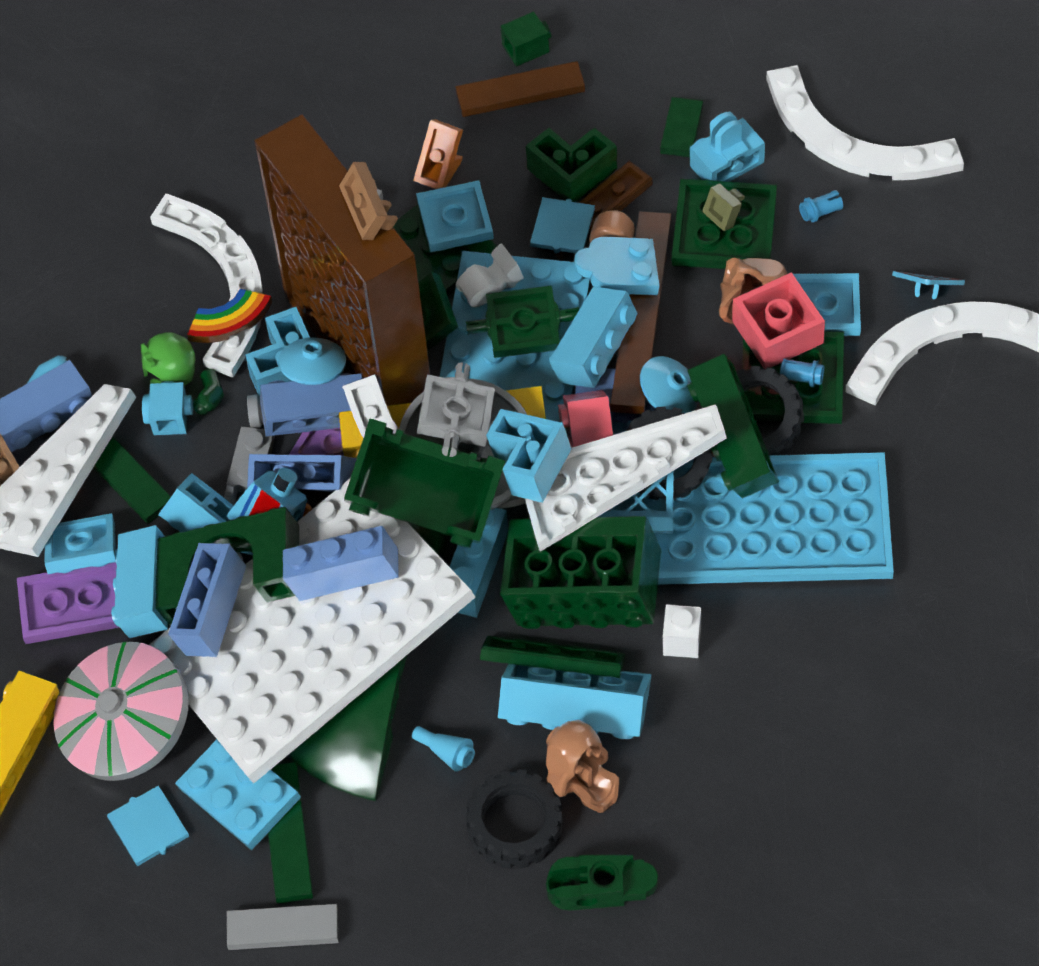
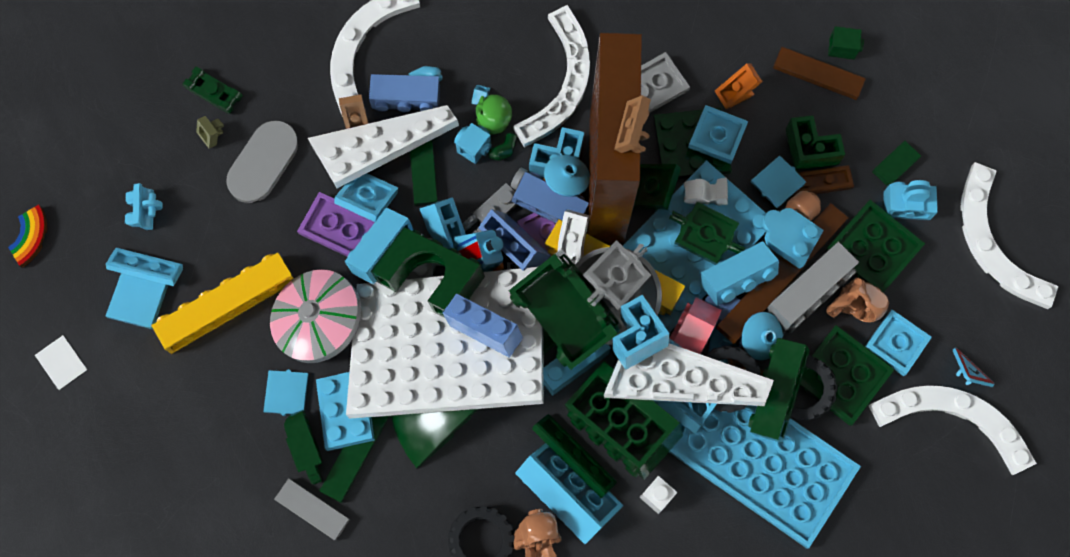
camera: 30 degrees right, 15 degrees up
(132, 356) = (478, 92): none -> medium azure piece
(207, 600) = (400, 288): medium blue brick -> none
(219, 860) = (303, 445): none -> dark green piece
(235, 316) = (544, 111): tile -> none
(453, 750) = (477, 471): medium azure cone -> none
(688, 300) = (813, 288): none -> light grey brick
(723, 206) = (881, 238): olive tile -> none
(778, 321) = (858, 339): coral brick -> none
(803, 371) = (851, 383): dark azure pin -> none
(814, 208) = (940, 274): dark azure pin -> none

